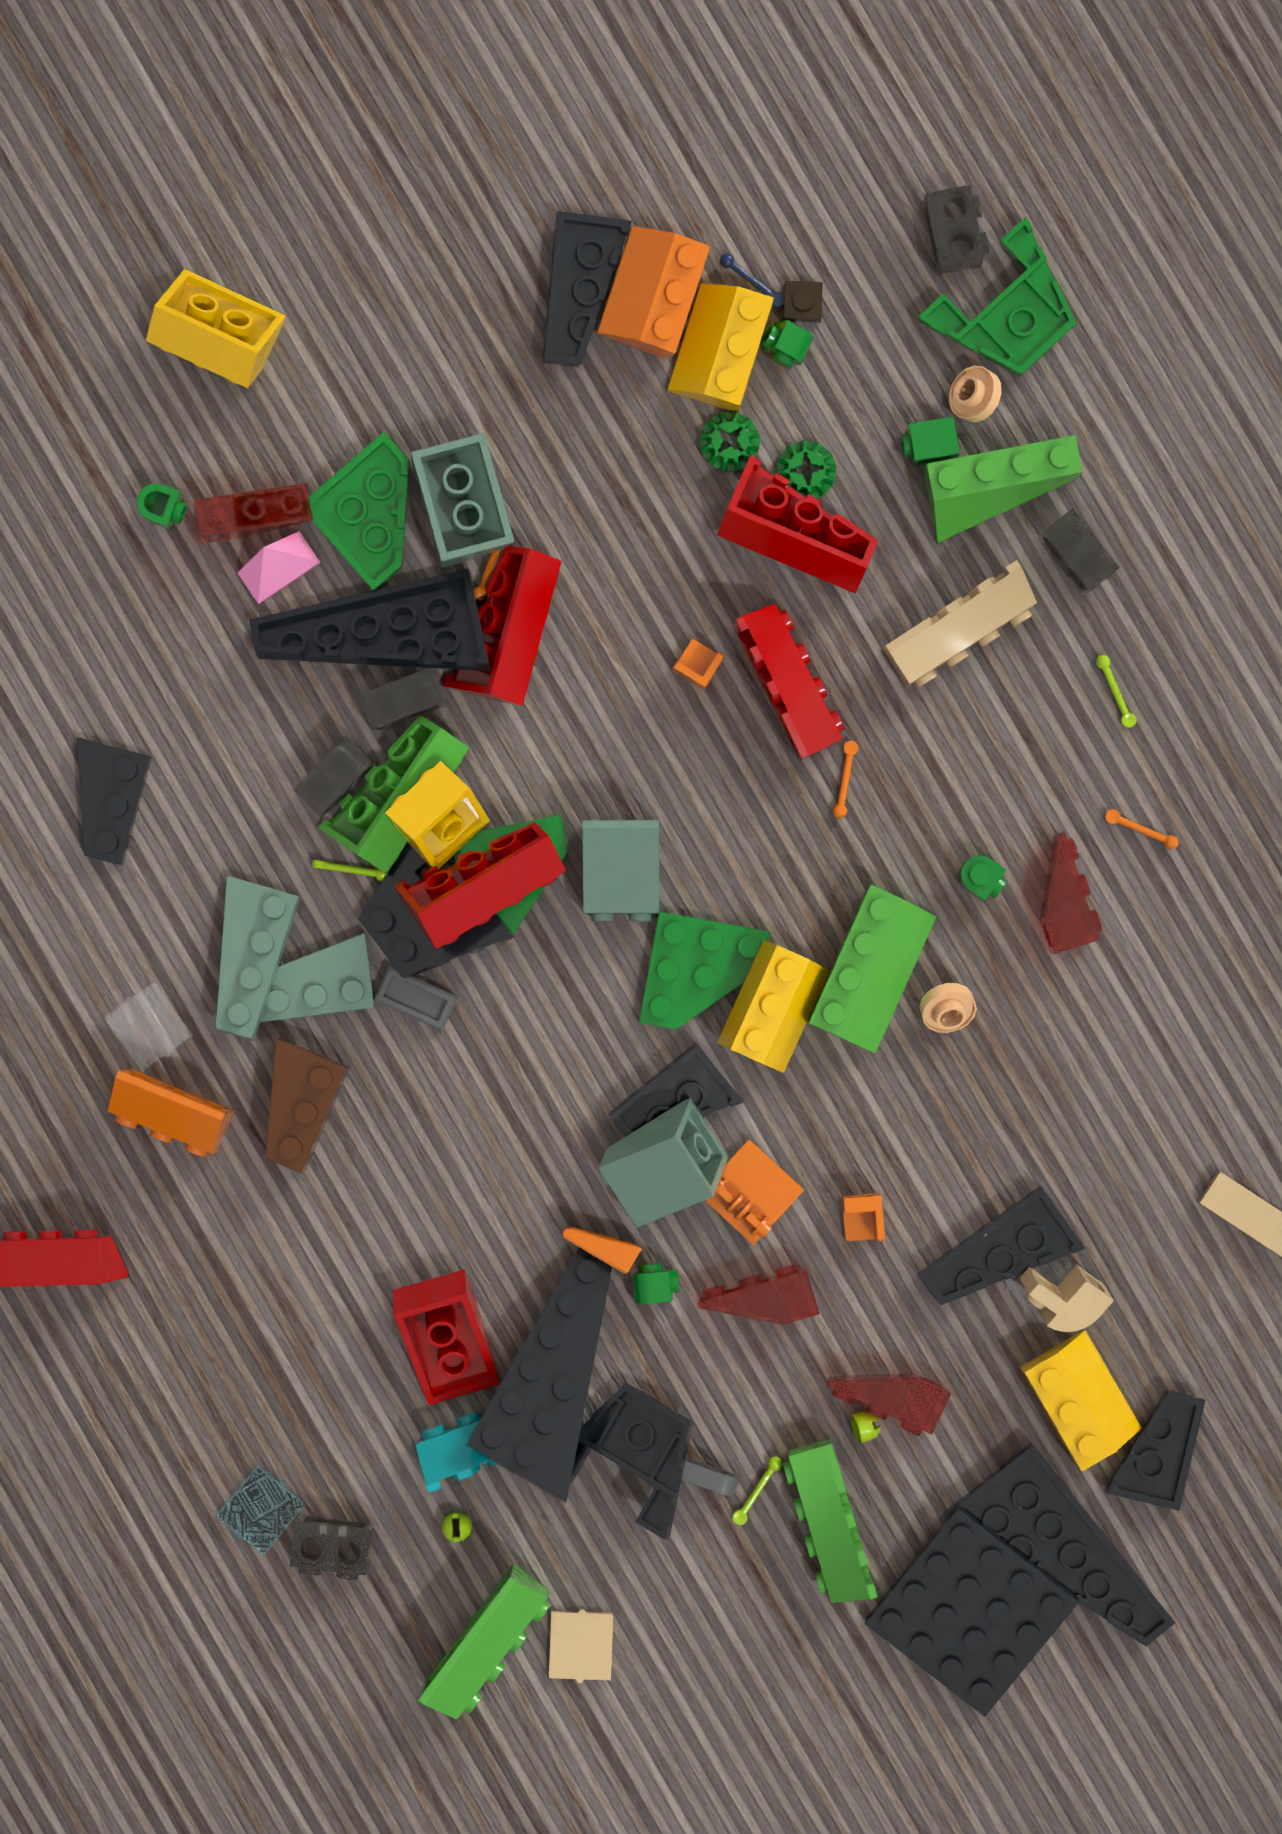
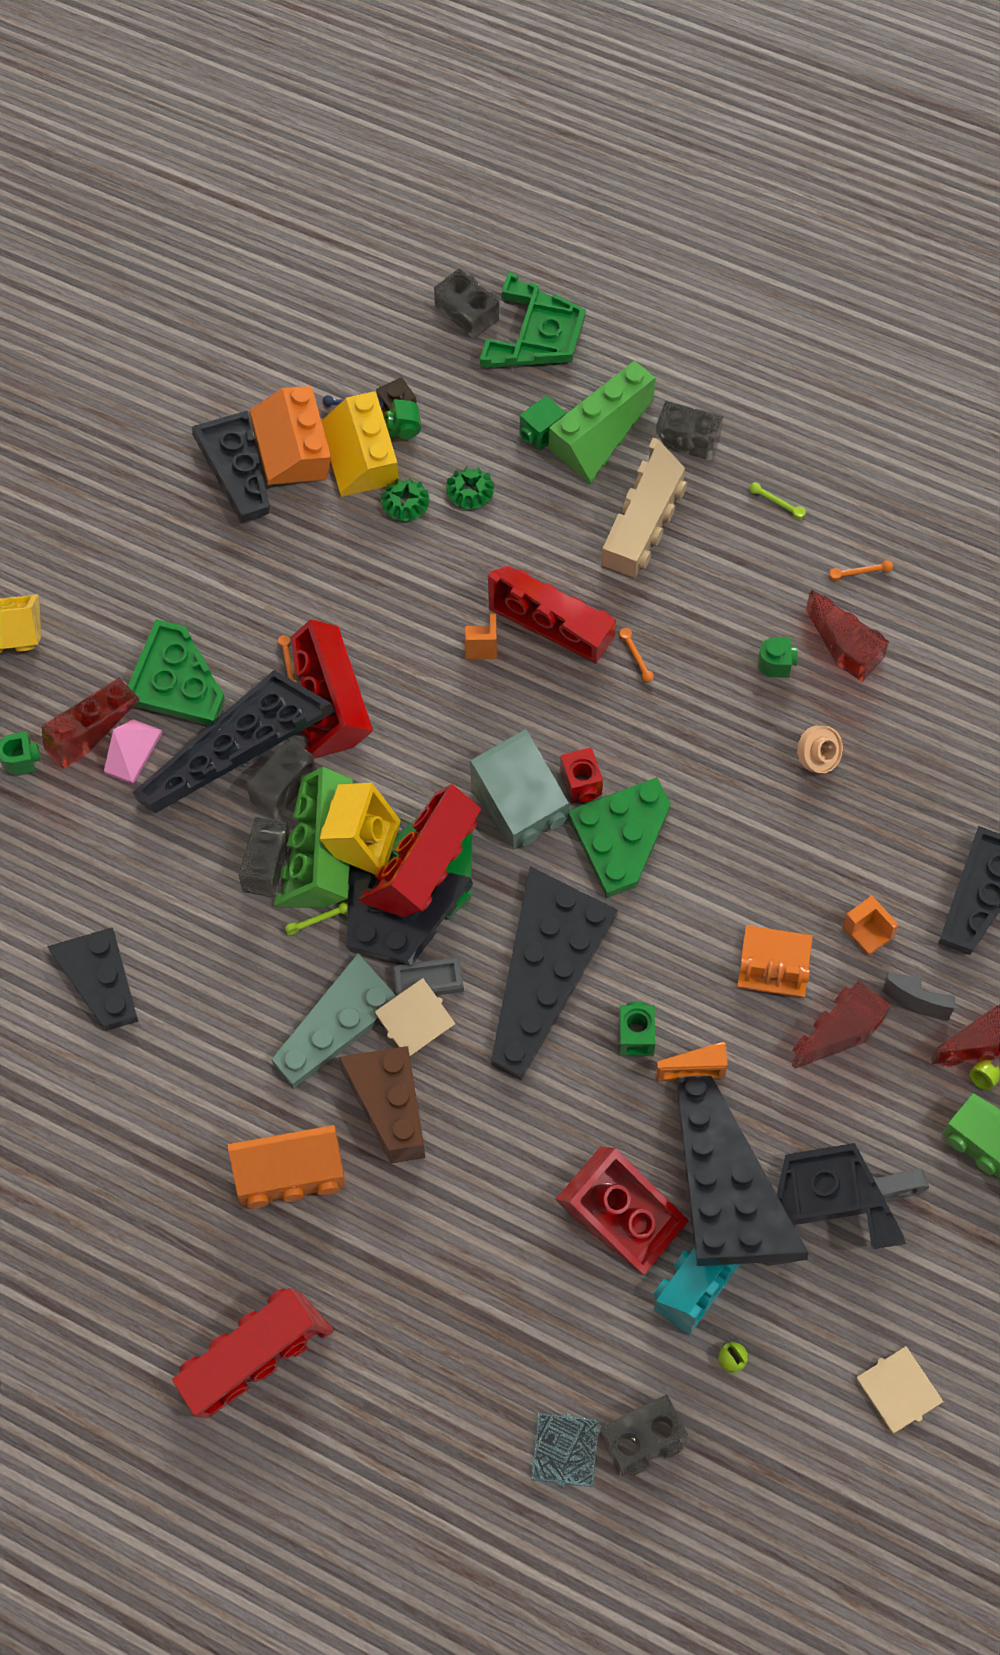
camera: 30 degrees left, 25 degrees down
(148, 1026) = (230, 1121): clear piece -> none
(252, 947) = (278, 1012): sand green wing -> none
(376, 1032) = (414, 1017): none -> tan piece
(462, 499) = (240, 627): sand green slope -> none
(484, 1643) = (823, 1431): bright green slope -> none
(551, 1044) = (550, 954): none -> black wing
(573, 1195) = (632, 1042): none -> green brick
(655, 1284) = (754, 1067): green plate -> none
(664, 1165) = (697, 975): sand green slope -> none
(686, 1077) = (670, 927): black wing -> none
(708, 872) = (581, 763): none -> red brick
(740, 1515) = (945, 1205): lime hinge -> none
(773, 1006) = (695, 819): yellow slope -> none
(795, 529) = (491, 519): red wedge -> none
(852, 1308) = (908, 993): none -> dark grey slope
(871, 968) = (745, 758): bright green slope -> none
(975, 394) = (550, 379): light nougat plate -> none

